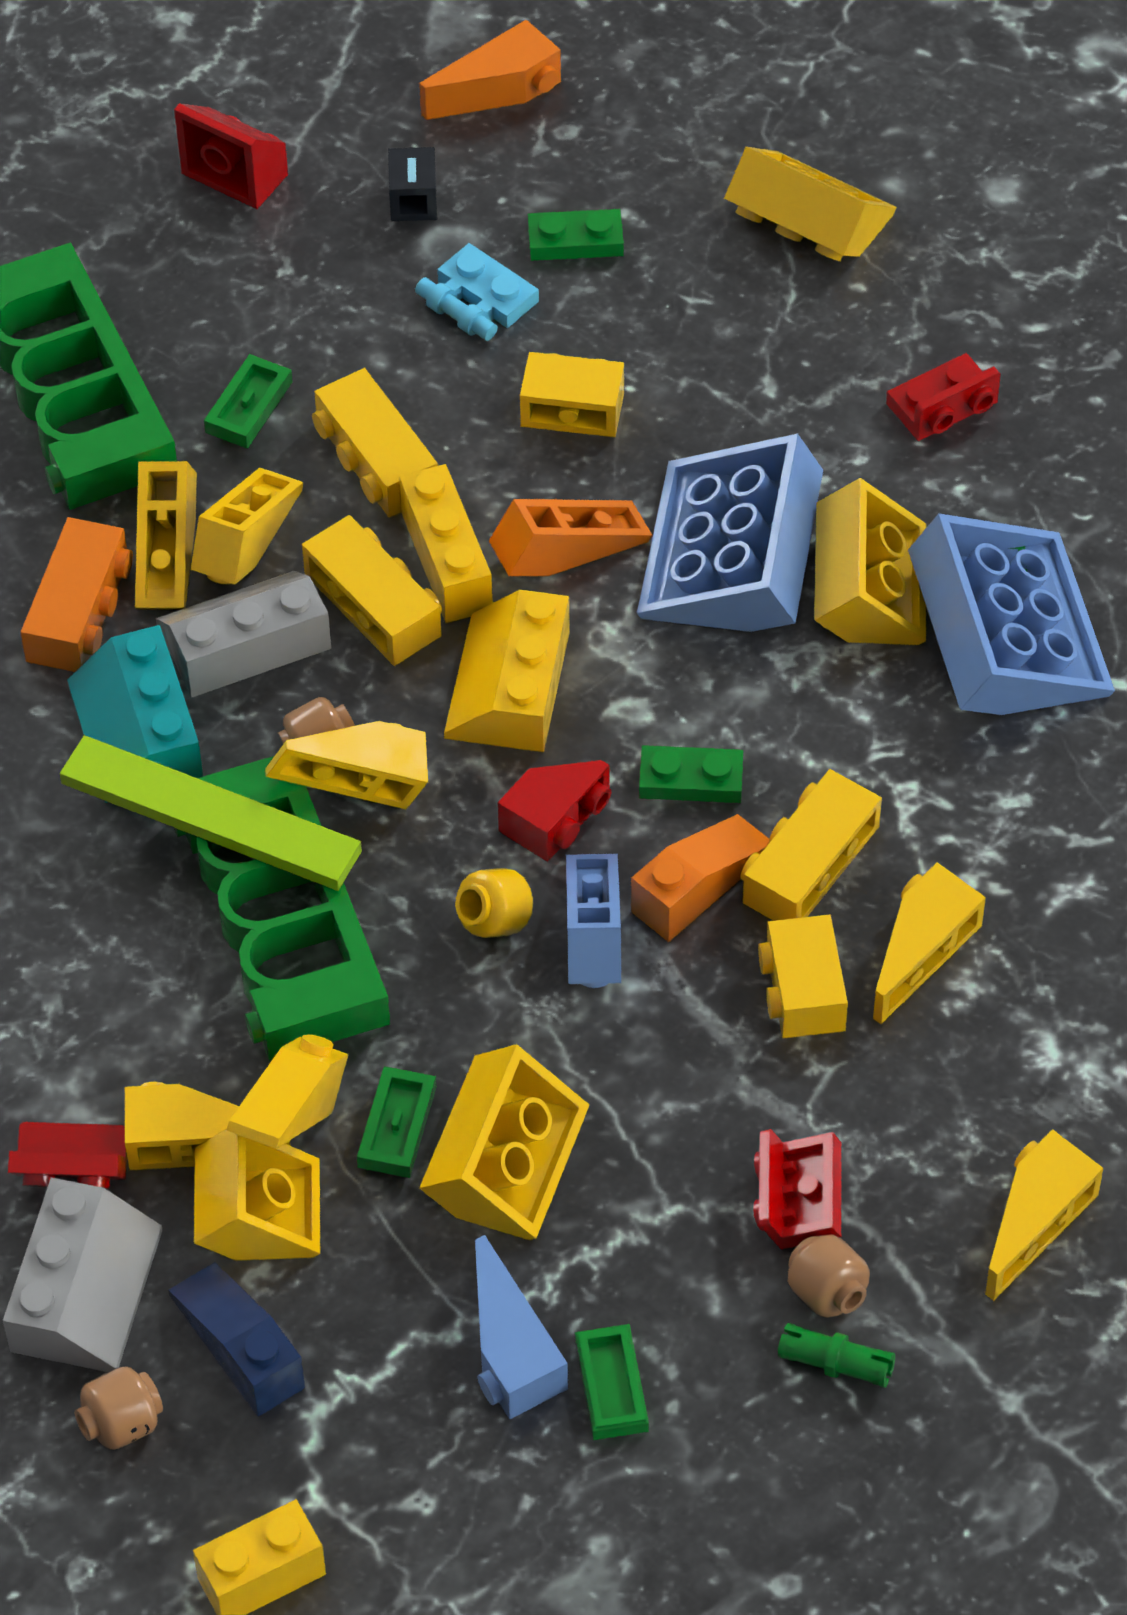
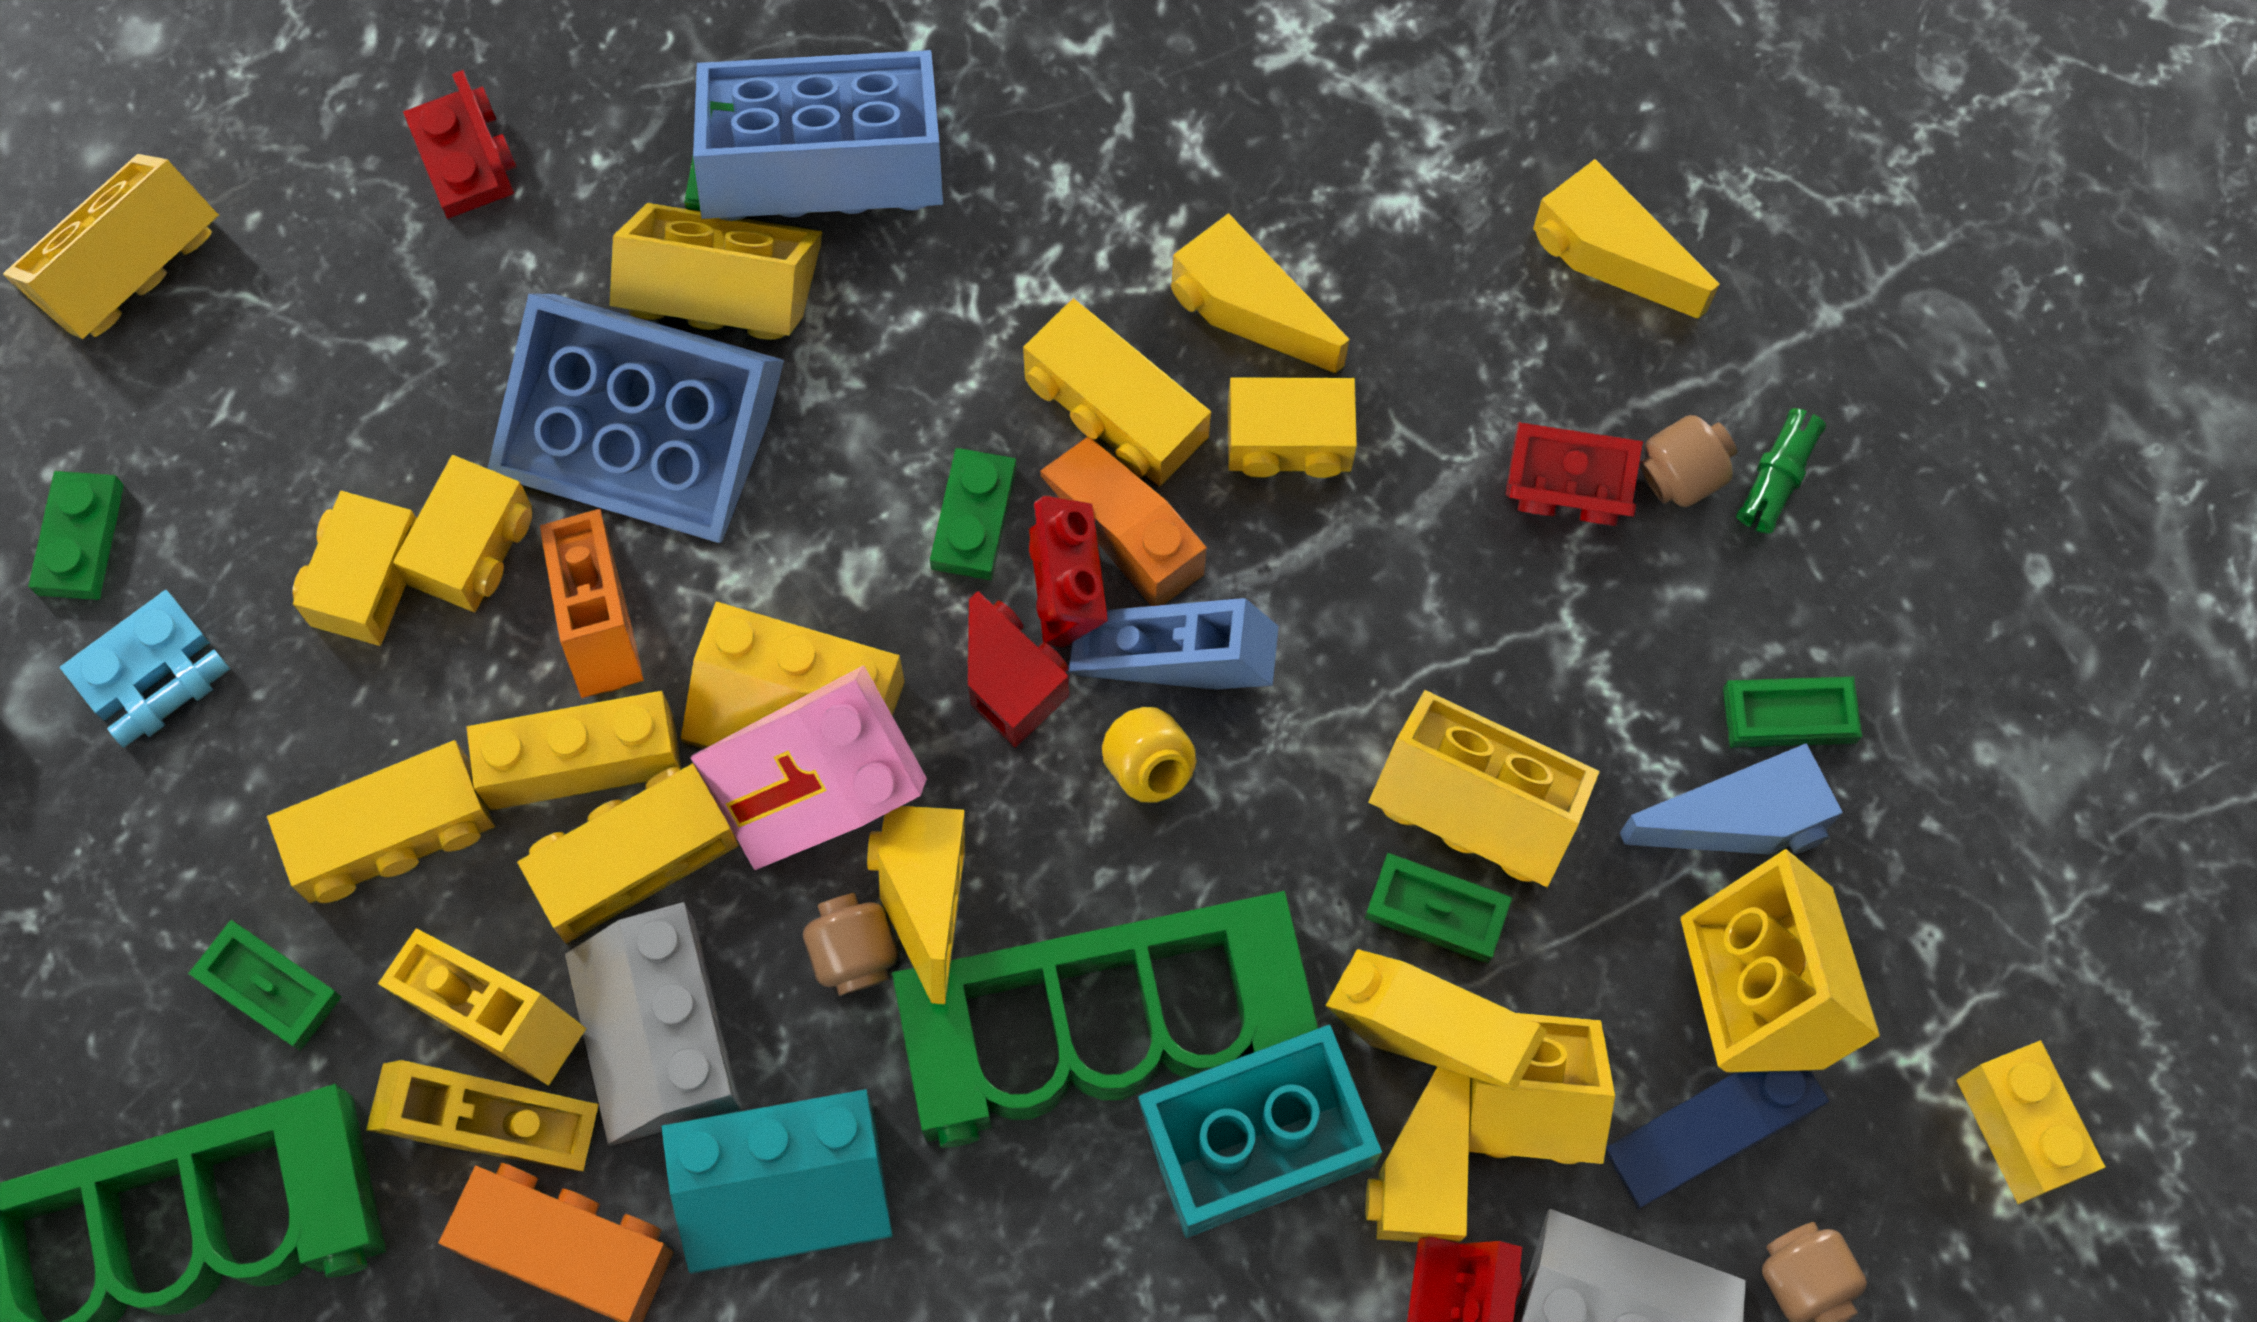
camera: 85 degrees left, 15 degrees up
(194, 1000) = (1259, 1131): none -> teal slope
(211, 812) = (980, 1087): lime tile -> none
(361, 1348) = (1778, 972): none -> yellow slope
(447, 681) = (811, 770): none -> bright pink slope
(610, 450) = (464, 534): none -> yellow brick
(641, 818) = (1066, 570): none -> red bracket

